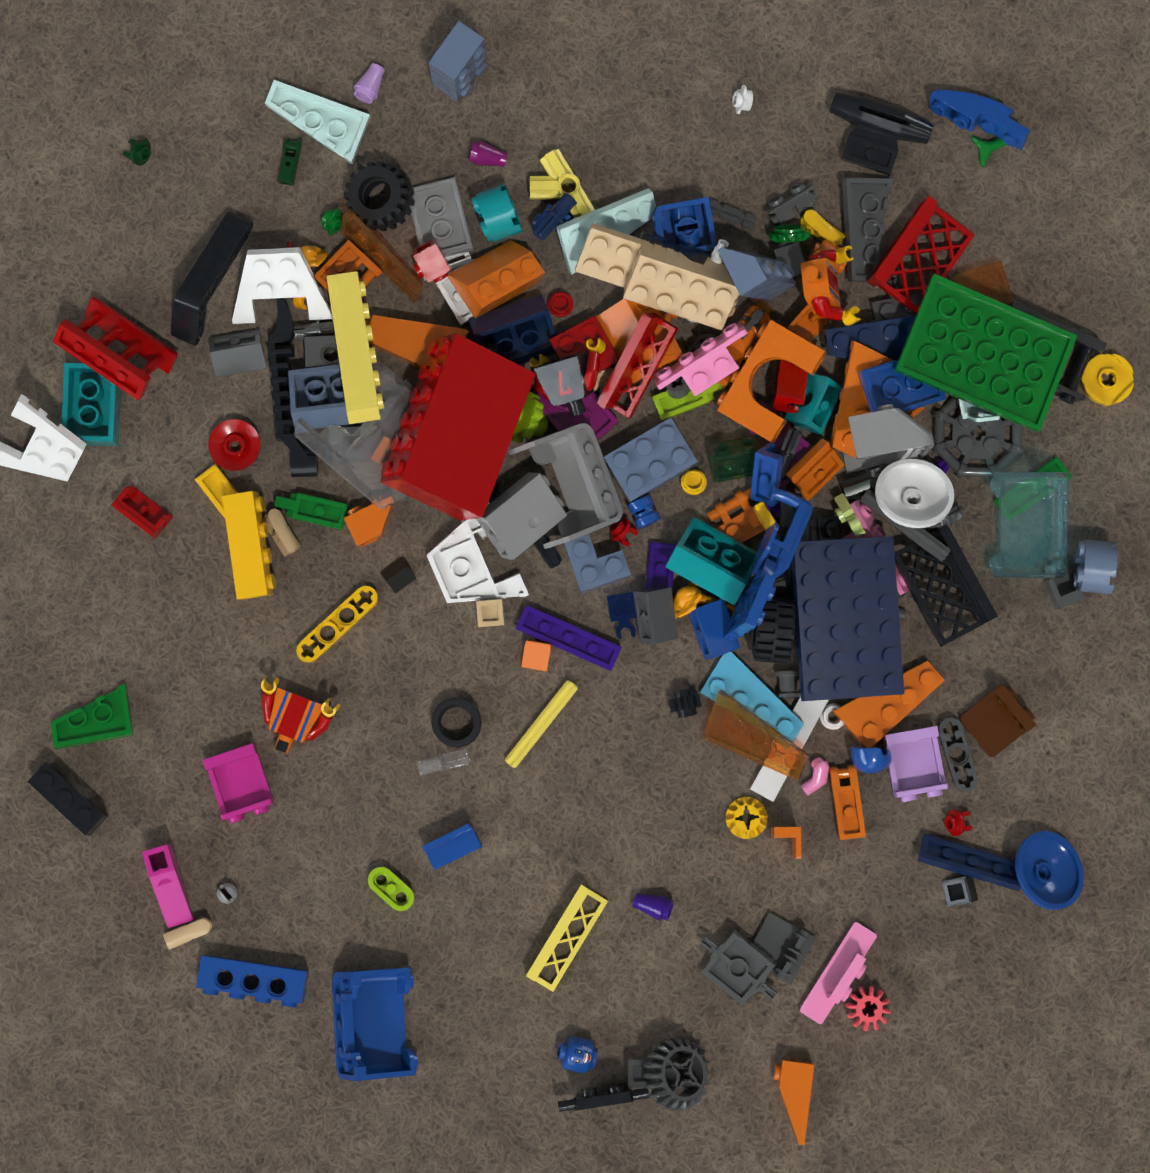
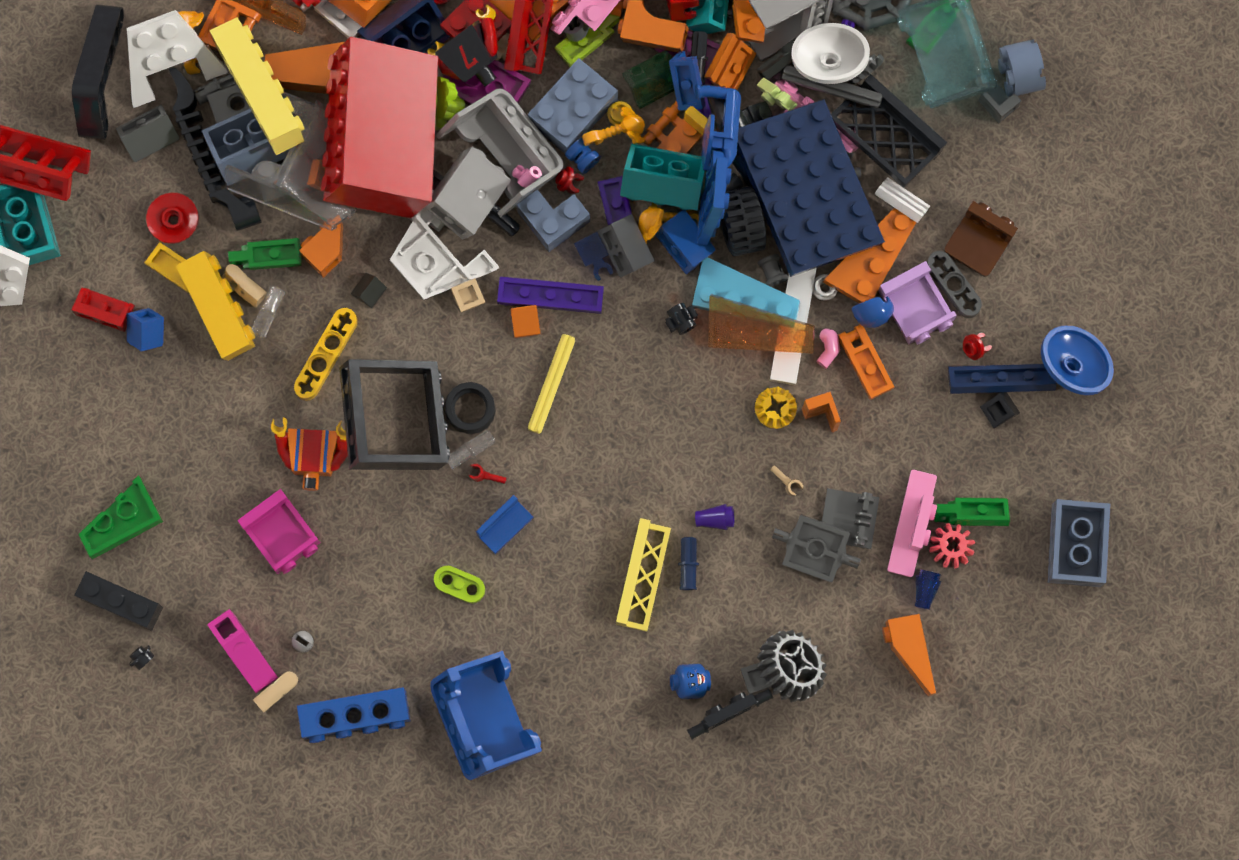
camera: 20 degrees left, 5 degrees down
(72, 858) = (141, 657): none -> black plate
(174, 544) = (145, 329): none -> blue panel
(295, 565) = (267, 311): none -> clear axle
(343, 698) = (355, 421): none -> black window
(451, 792) = (486, 475): none -> red hand
(582, 516) = (526, 176): none -> bright pink arm
(613, 940) = (688, 563): none -> dark blue axle
(699, 500) = (631, 124): none -> light orange piece
(732, 891) = (786, 480): none -> tan hand
(831, 1039) = (926, 588): none -> clear blue cone
(901, 982) = (974, 512): none -> green hinge
(936, 656) = (902, 200): none -> white tile
(989, 1047) = (1078, 543): none -> sand blue brick

